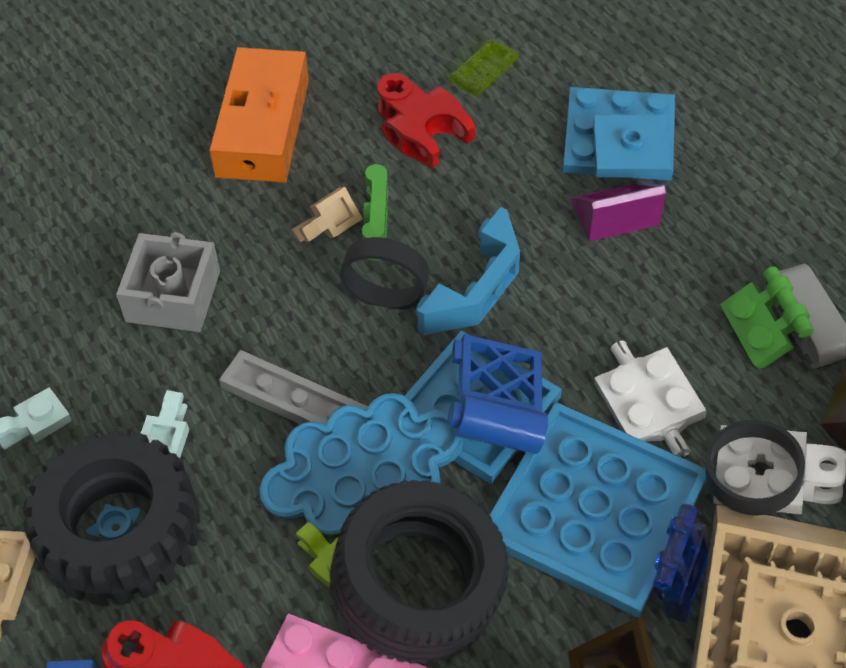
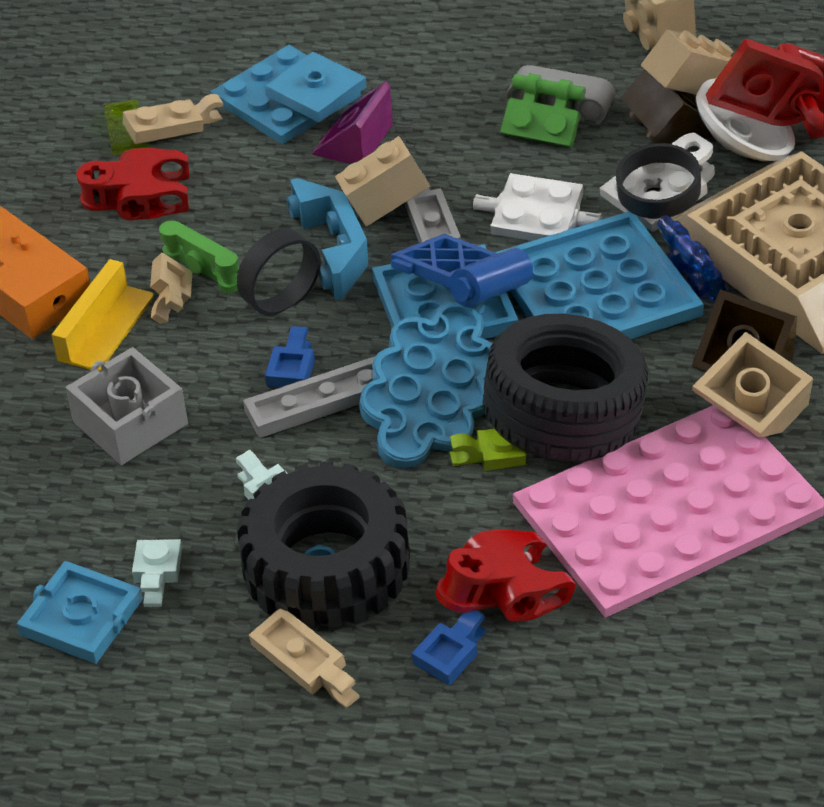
camera: 50 degrees left, 10 degrees down
(260, 200) = (100, 318): none -> yellow panel
(312, 353) = (291, 362): none -> blue plate
(511, 87) = (171, 119): none -> tan plate
(560, 266) = (382, 181): none -> tan slope
(565, 326) = (431, 215): none -> light grey plate

